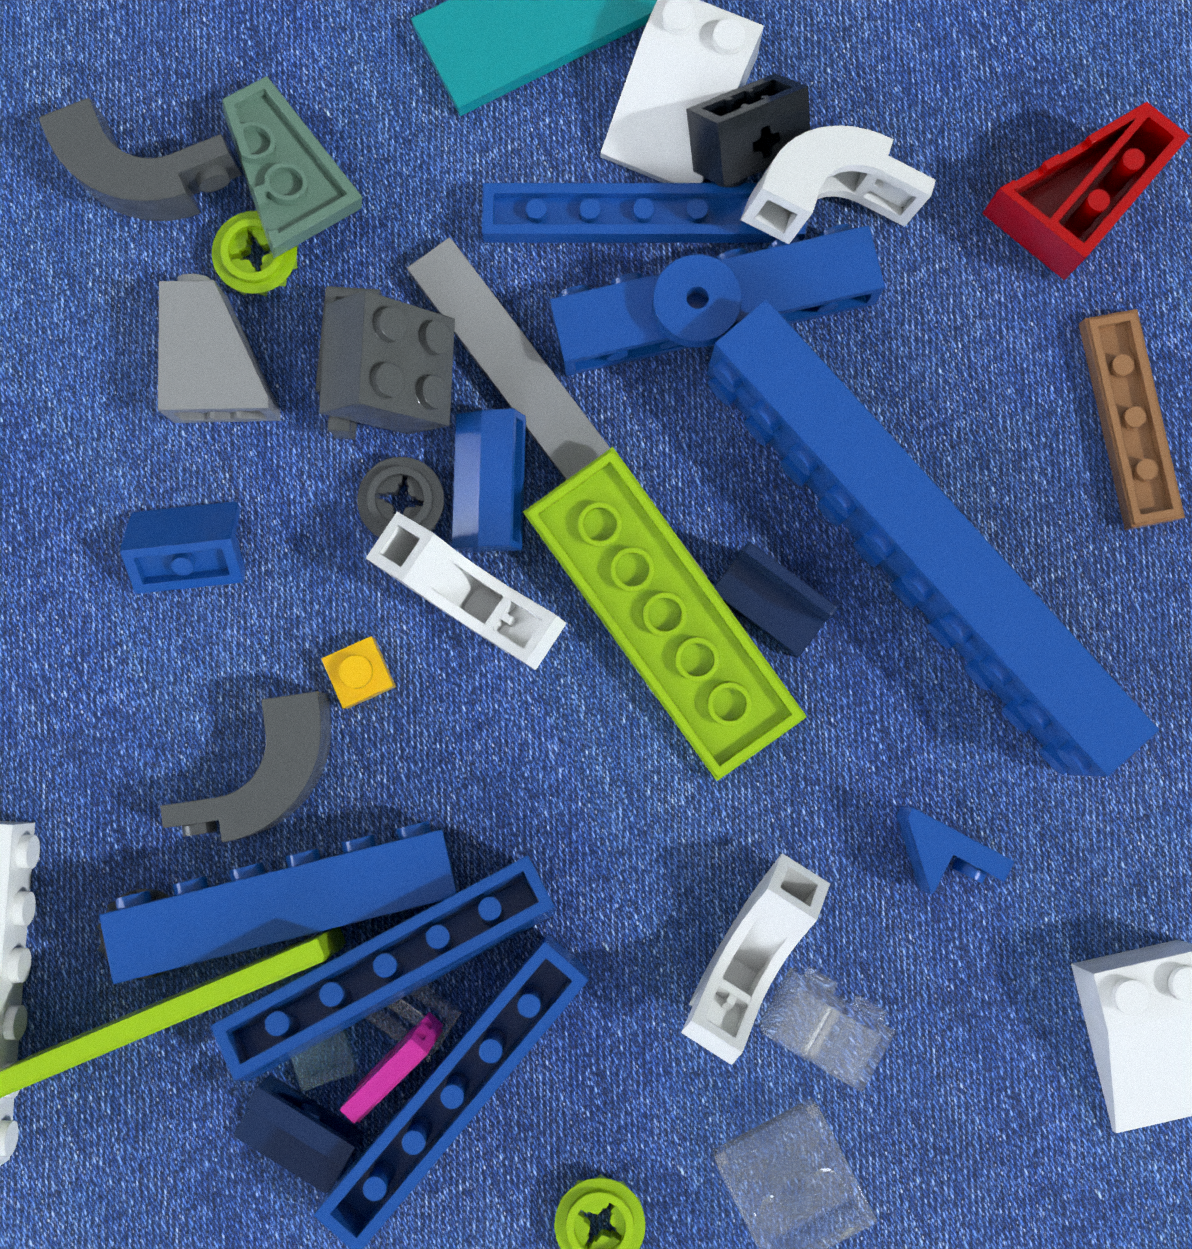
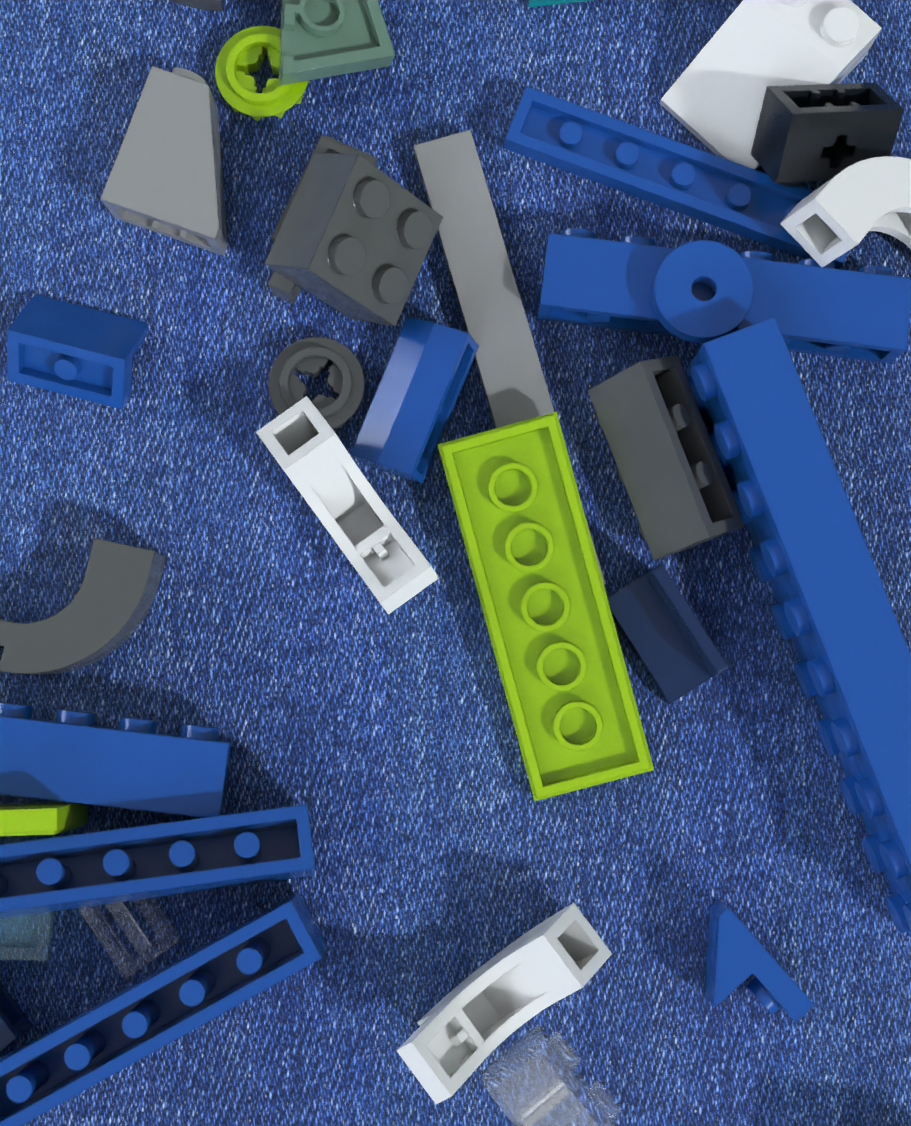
camera: 20 degrees right, 0 degrees up
(358, 672) = (205, 547): yellow plate -> none
(392, 1068) = (85, 971): dark pink tile -> none
(717, 451) = (665, 456): none -> dark grey brick

